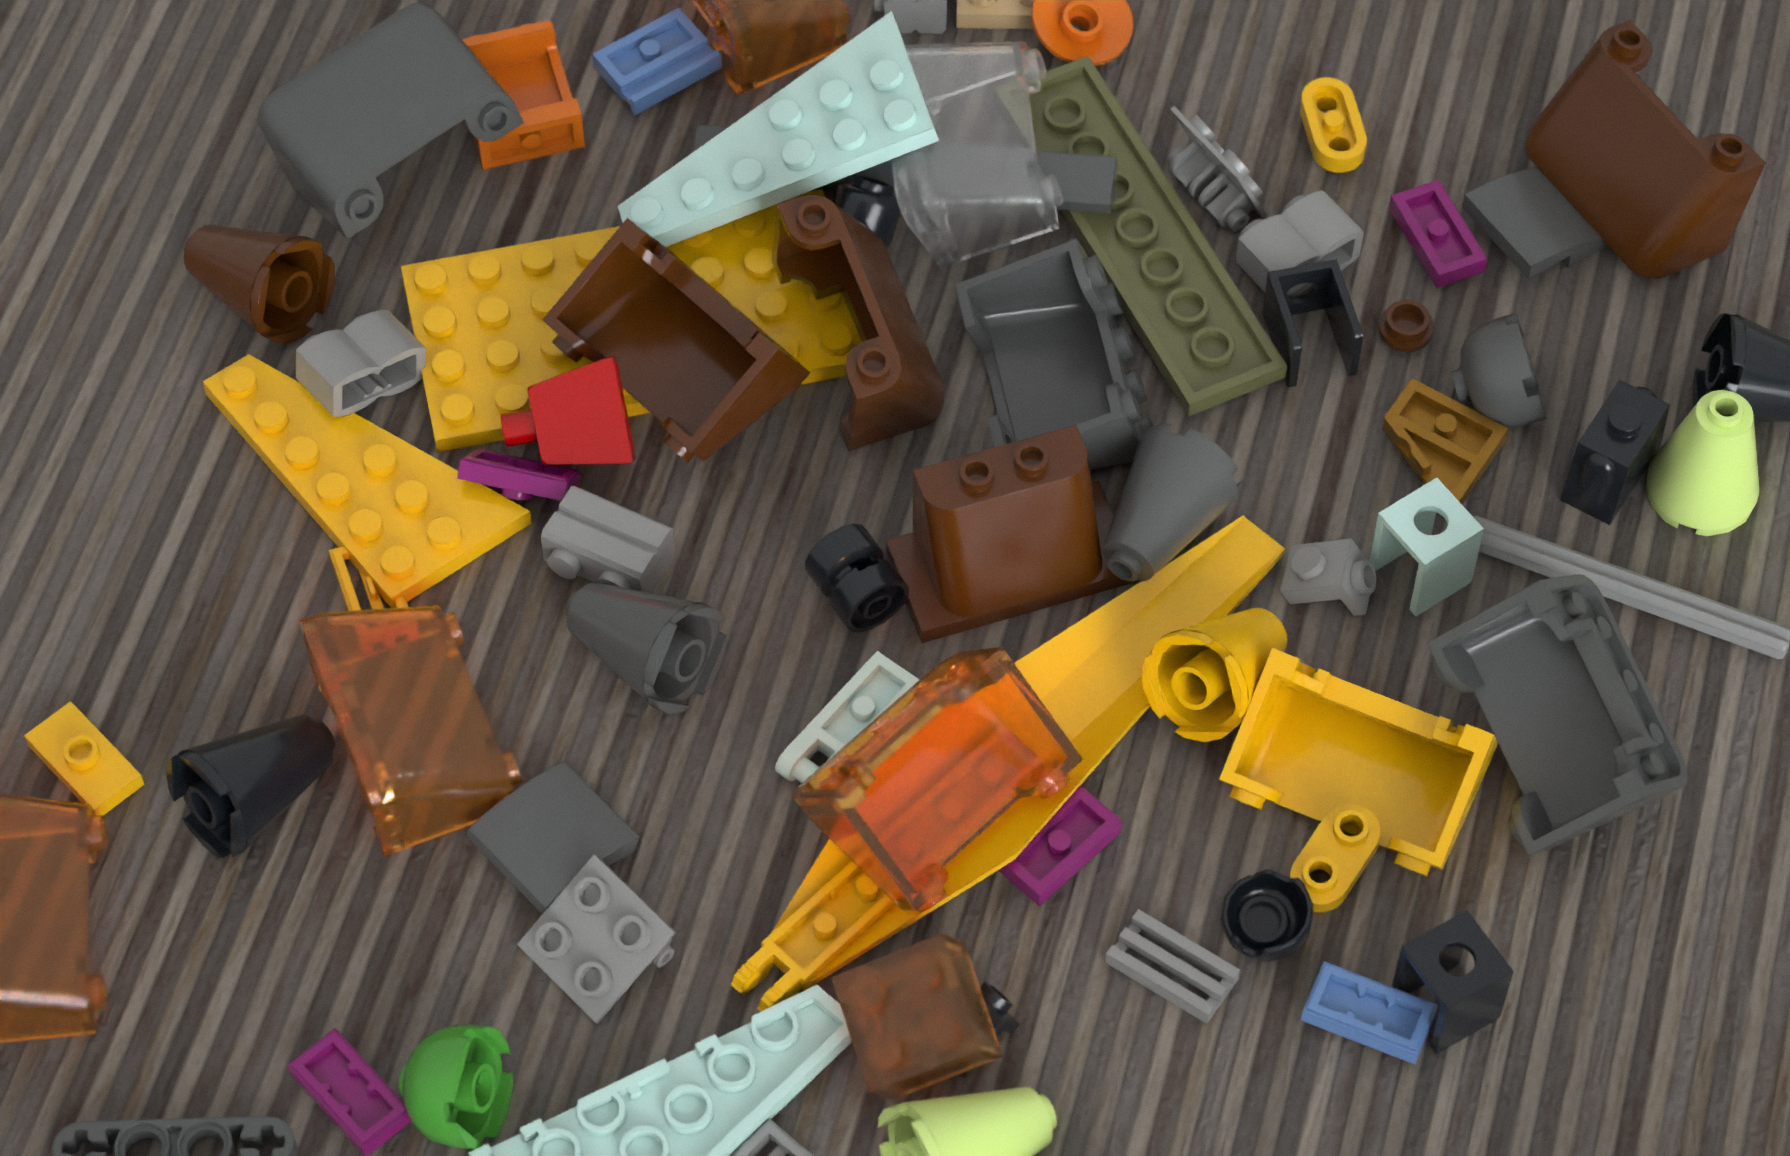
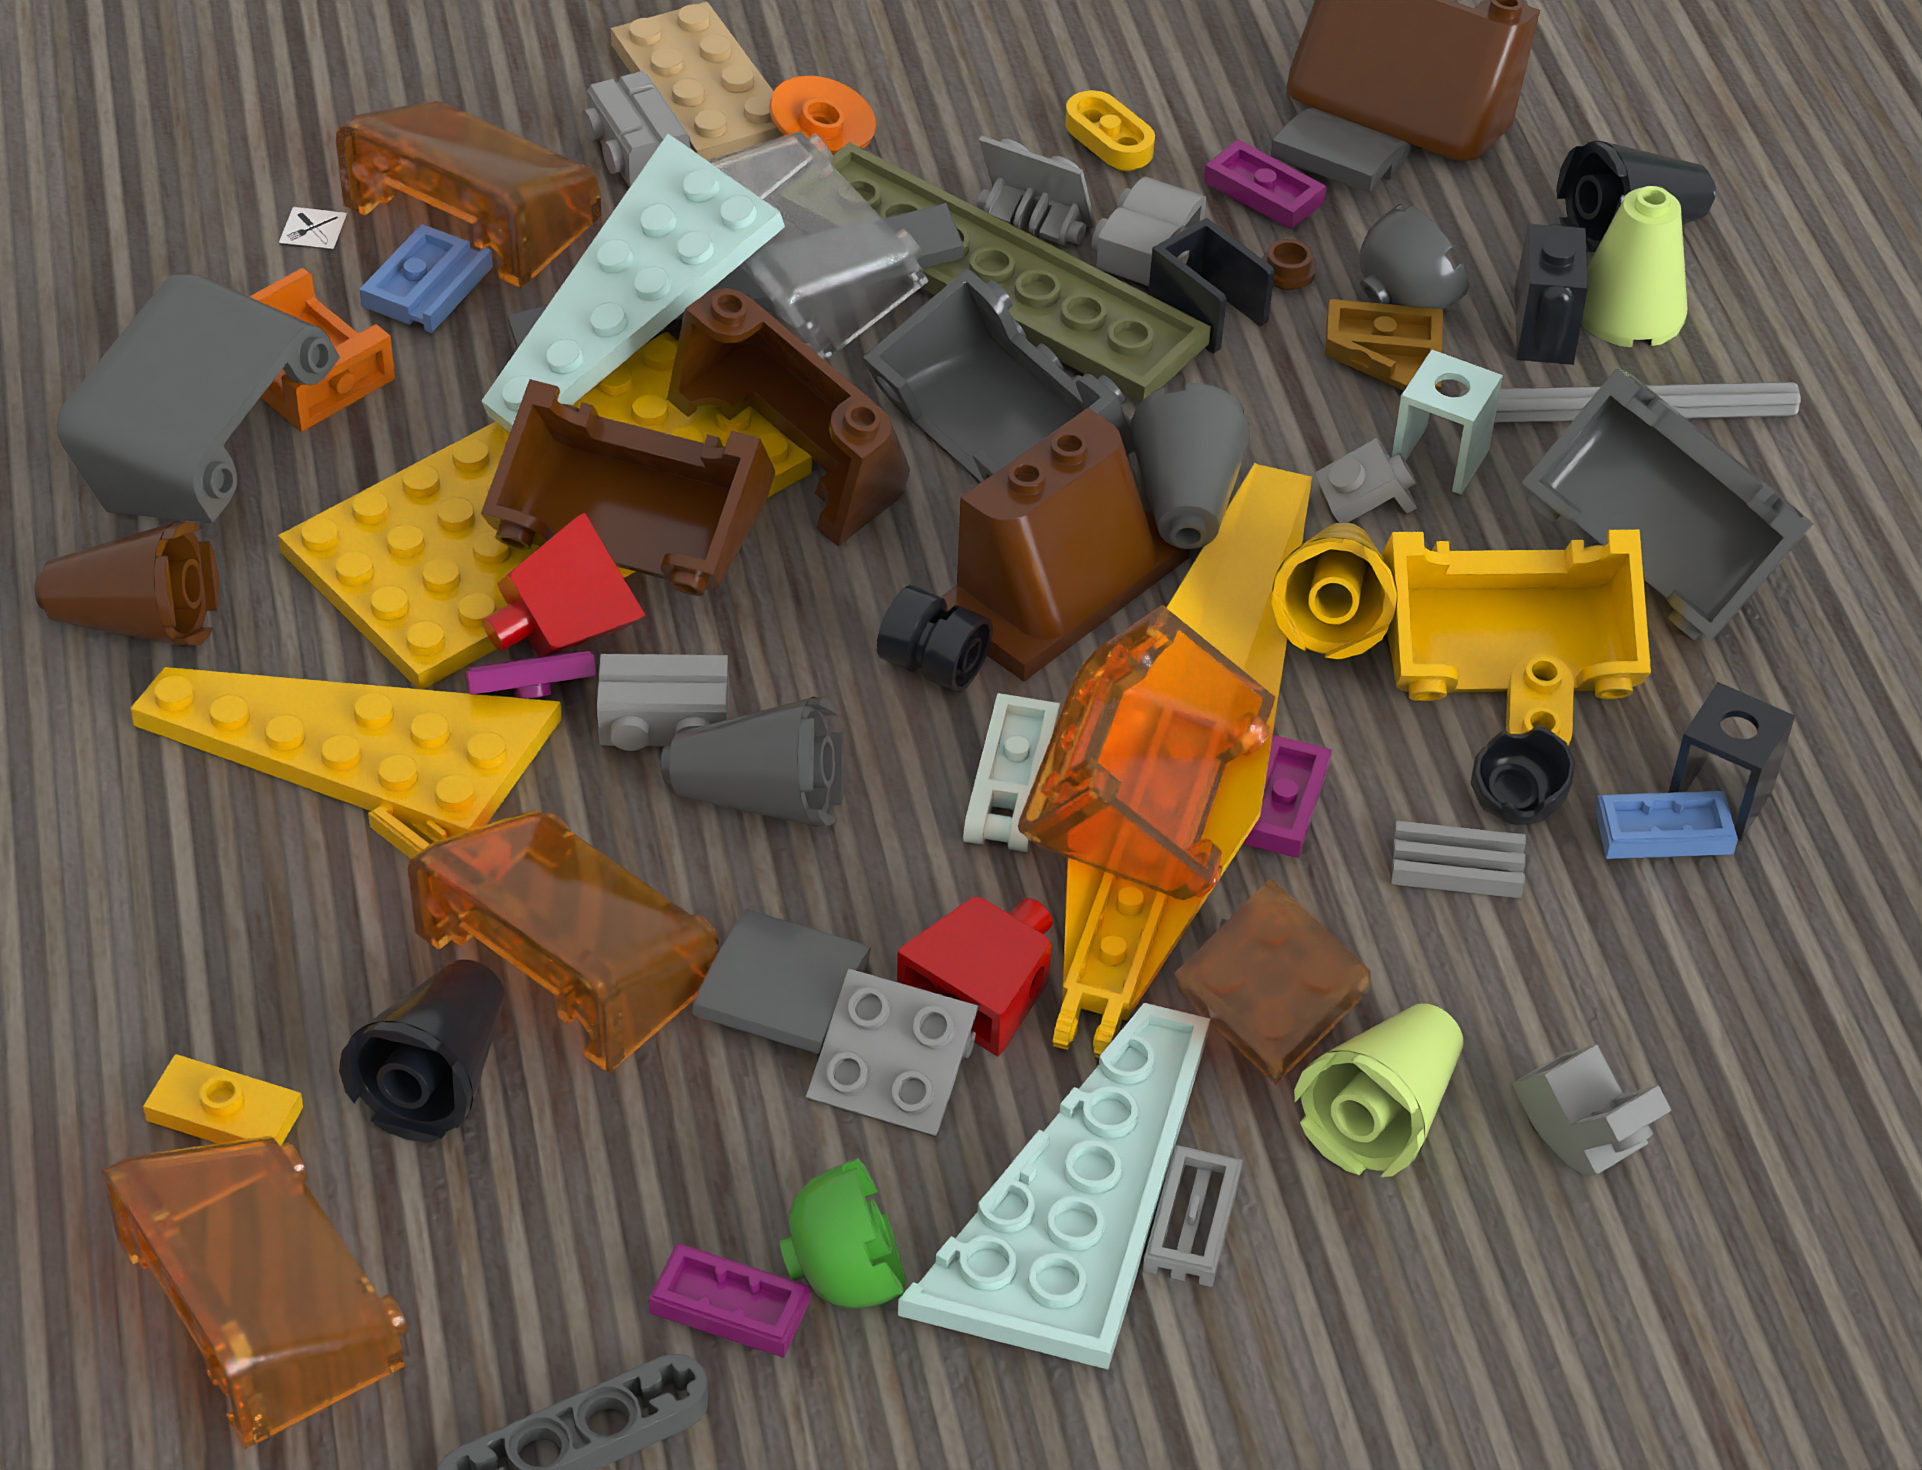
camera: 30 degrees left, 10 degrees down
(360, 363) = (296, 629): light grey brick -> none
(712, 895) = (986, 961): none -> red torso

